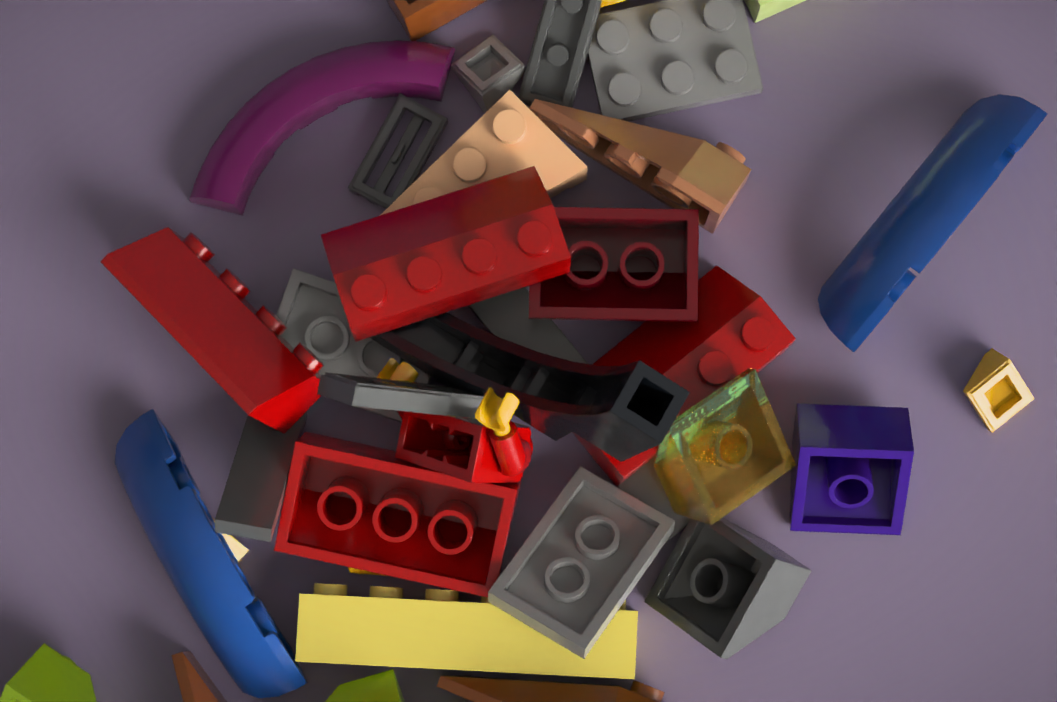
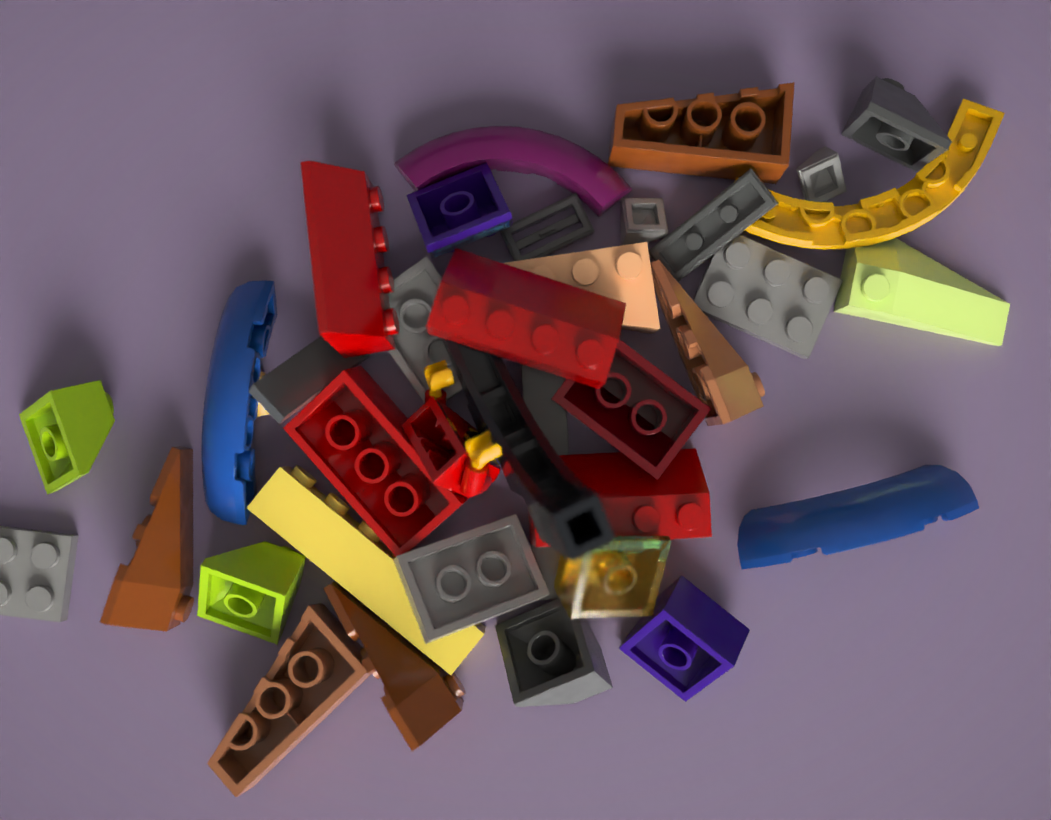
camera: 25 degrees right, 5 degrees up
(295, 195) = (460, 210): none -> dark purple slope
(398, 395) = (428, 390): dark grey tile -> none
(996, 390) = (814, 656): yellow slope -> none

